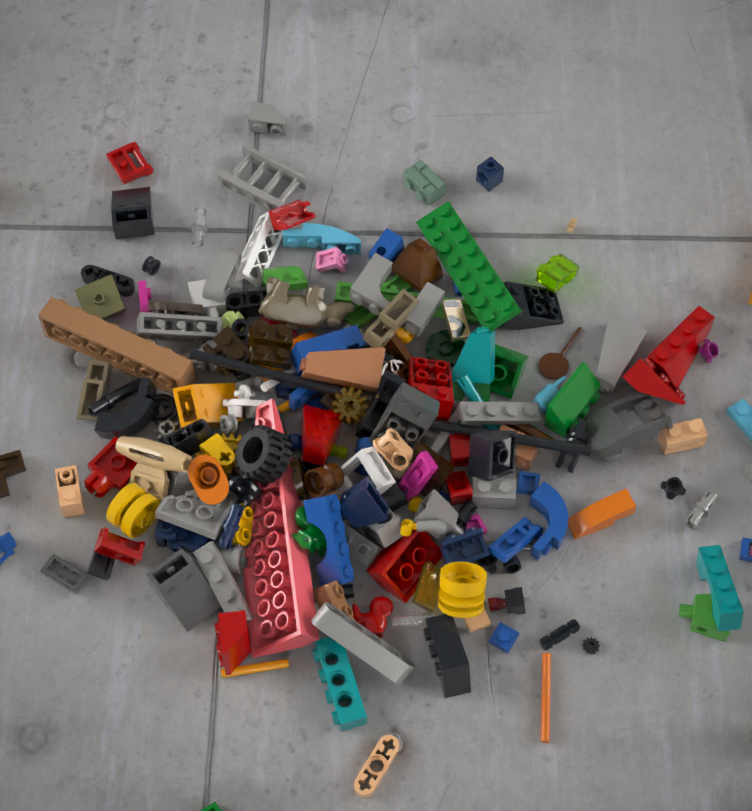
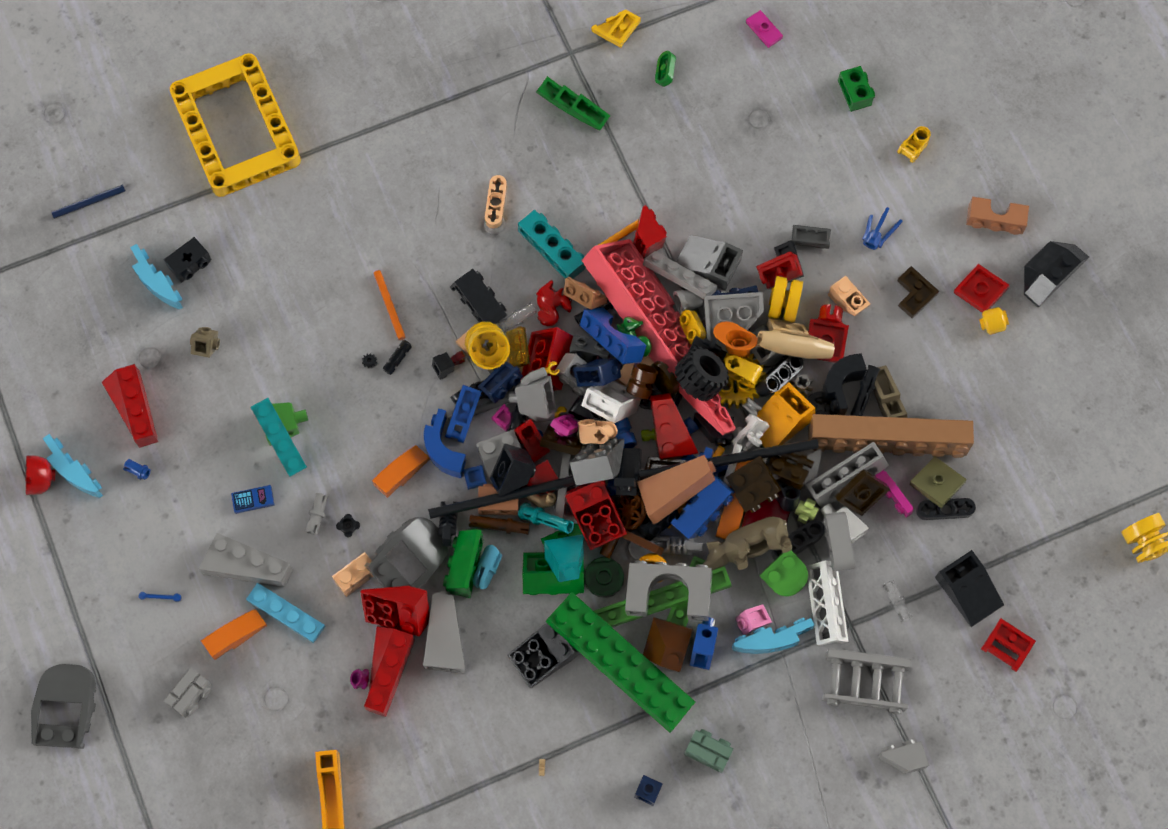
camera: 155 degrees right, 10 degrees up
(151, 265) = (915, 539): black bush -> none
(231, 525) = (697, 312): dark blue pin -> none
(290, 215) = (814, 645): red hinge -> none
(342, 404) = (654, 456): clear yellow gear -> none
(363, 643) = (545, 270): light grey beam -> none
(390, 319) = (658, 551): dark tan slope -> none
(455, 319) = (605, 598): tan slope -> none
(499, 413) = (523, 515): light grey plate -> none
(504, 637) = (440, 336): blue plate -> none
(555, 364) = (498, 606): reddish brown piece -> none
(556, 272) = (533, 698): clear neon green brick -> none

